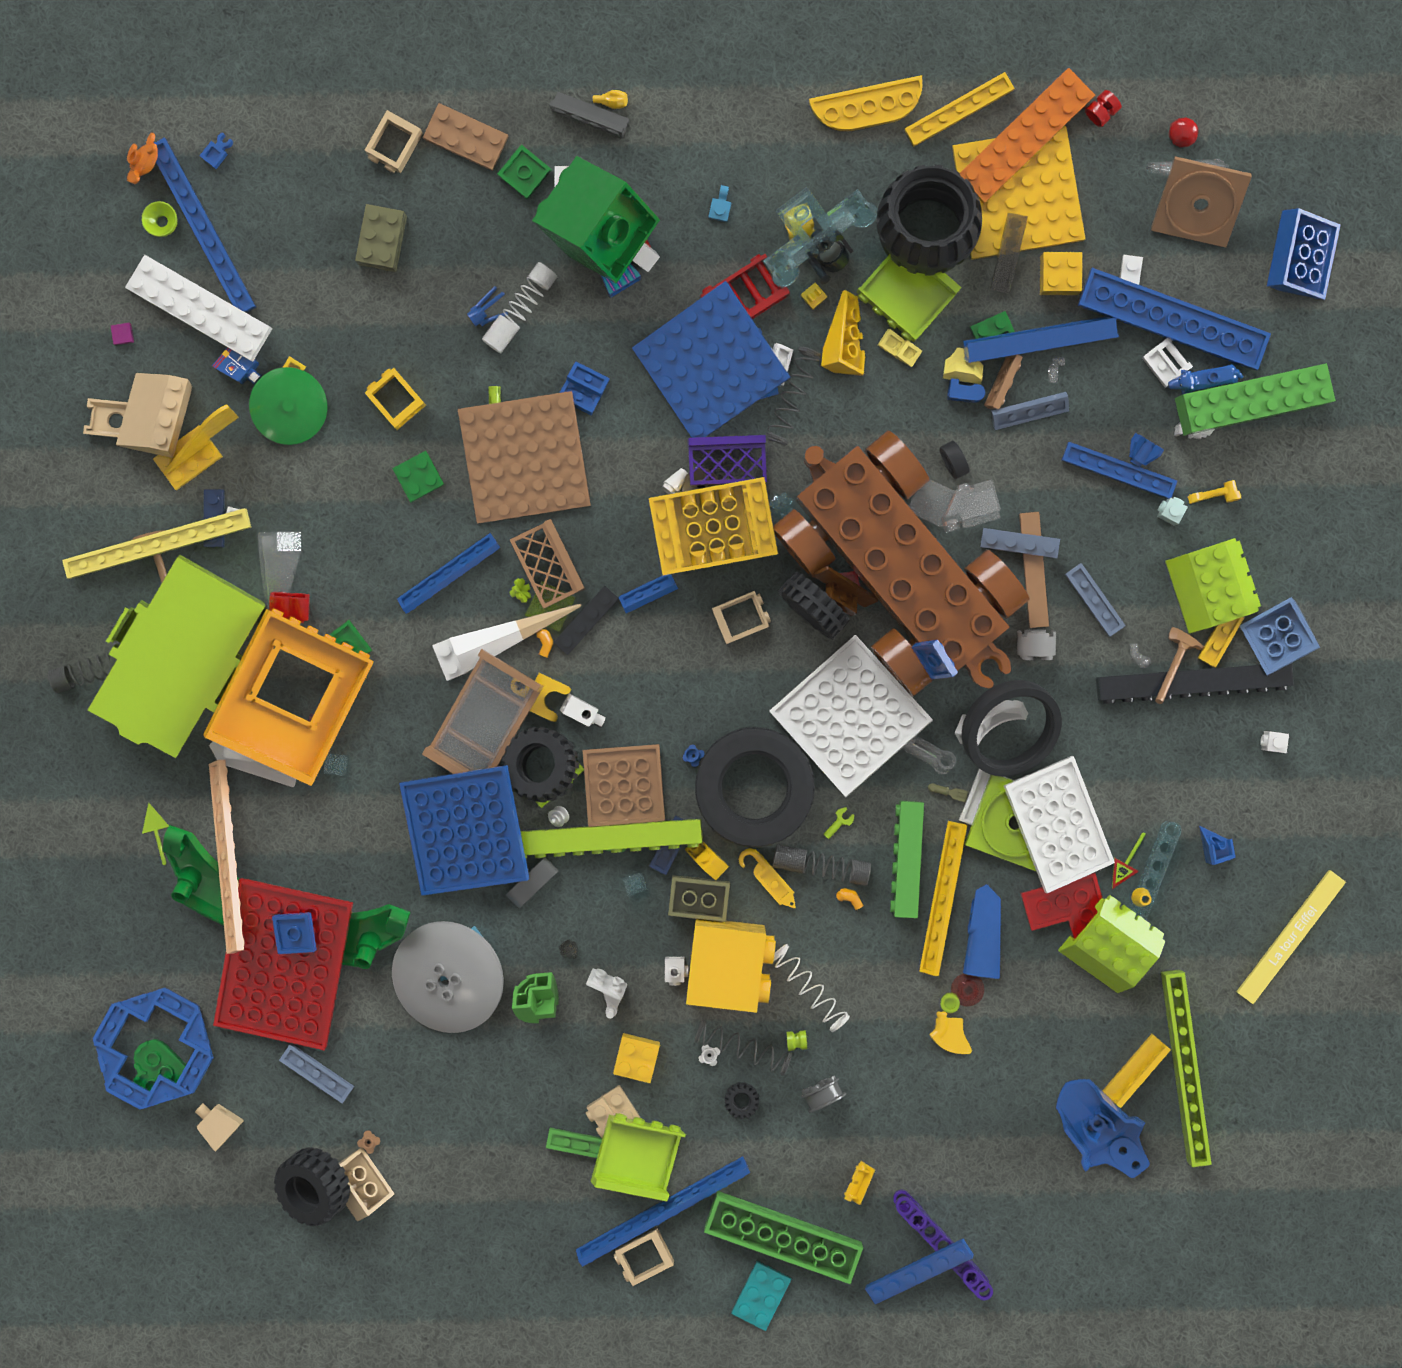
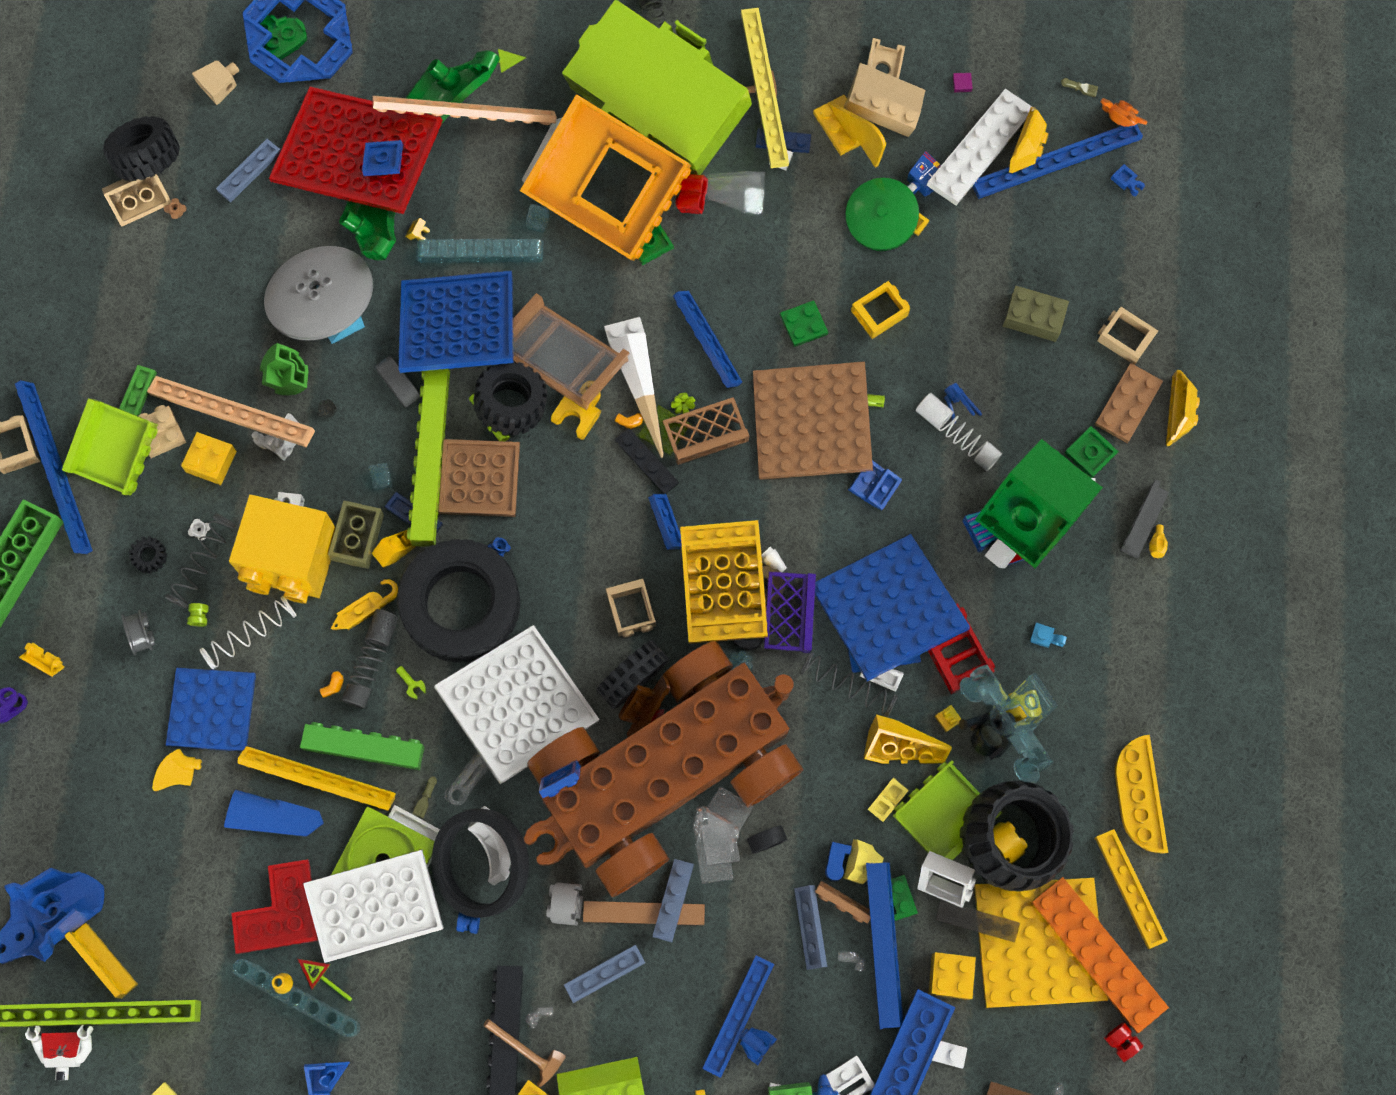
camera: 90 degrees right, 15 degrees down
(113, 201) = (1086, 89): none -> olive piece
(153, 212) = (1071, 118): lime piece -> none
(187, 256) = (1030, 142): none -> yellow wedge
(363, 889) = (416, 228): none -> yellow tile
(378, 819) = (479, 250): none -> clear light blue beam
(466, 82) = (1182, 407): none -> yellow wedge
(558, 816) = (458, 413): white wheel -> none
(574, 707) = (560, 437): white torso -> none
(589, 1042) = (231, 411): none -> light nougat plate
(887, 1011) = (210, 709): none -> blue plate
(934, 228) = (1008, 842): none -> yellow brick
(950, 1002) = (208, 774): lime tile -> none
(962, 982) = (221, 803): clear red piece -> none
(975, 284) = (942, 888): none -> white window
(1065, 737) = (467, 923): none -> blue wheel
(1115, 946) = (236, 950): lime slope -> none
(1172, 510) = (690, 1067): light aqua brick -> none
(1220, 1091) = (61, 1049): none -> torso

